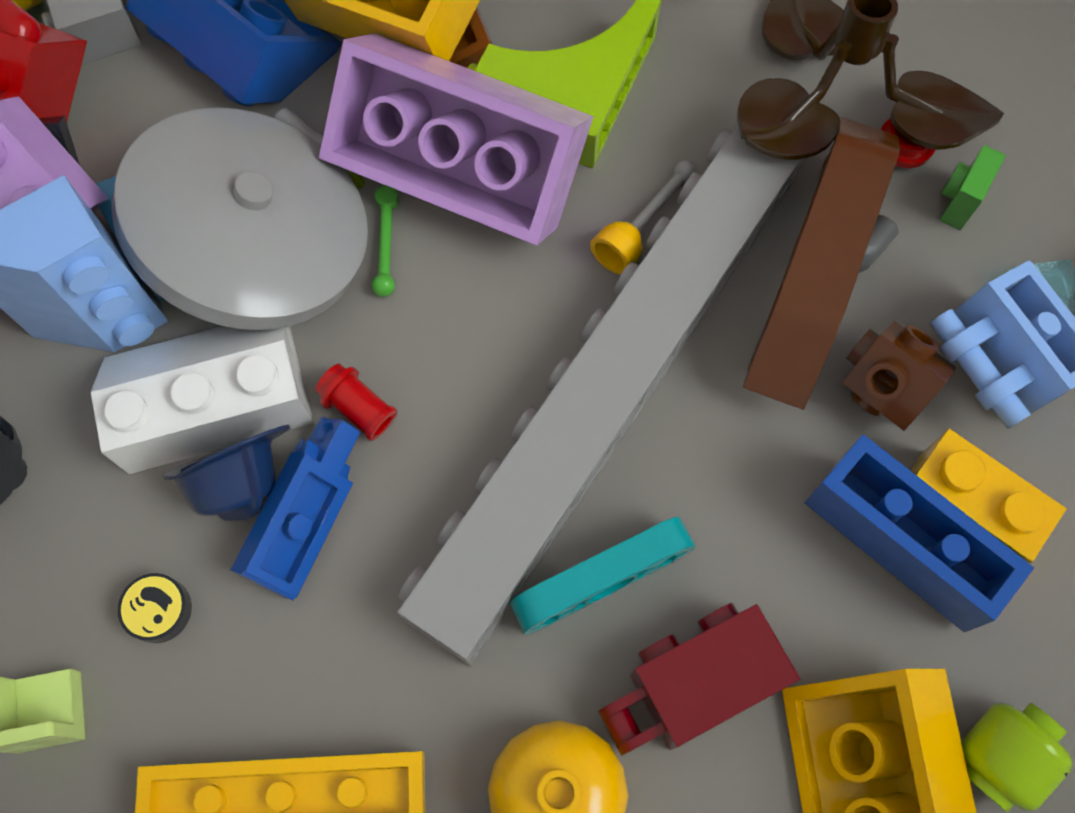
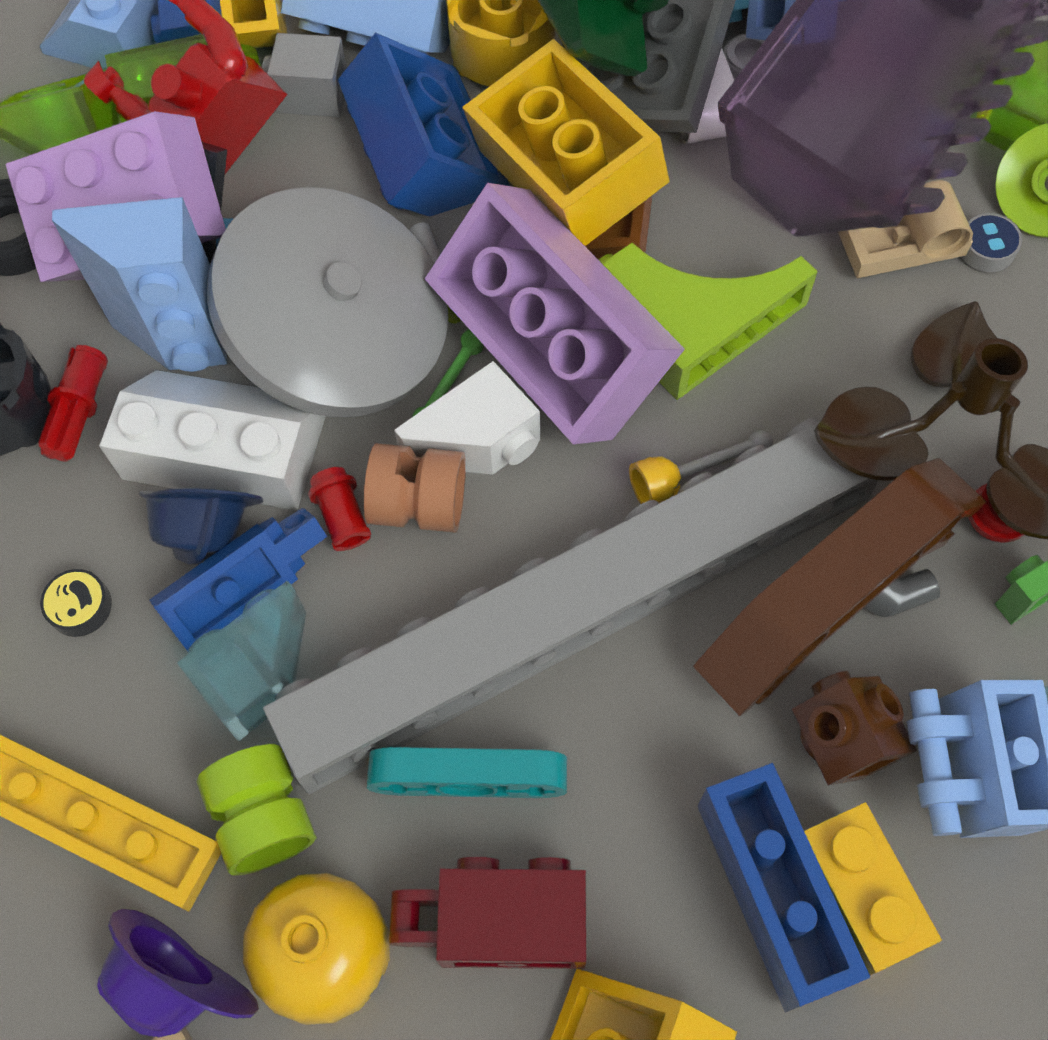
camera: 30 degrees right, 5 degrees down
(40, 425) = (72, 402): none -> red axle
(356, 579) = (249, 659): none -> clear light blue slope
(418, 349) = (414, 487): none -> nougat wheel
(436, 271) = (479, 417): none -> white slope
(438, 703) = (251, 799): none -> lime wheel

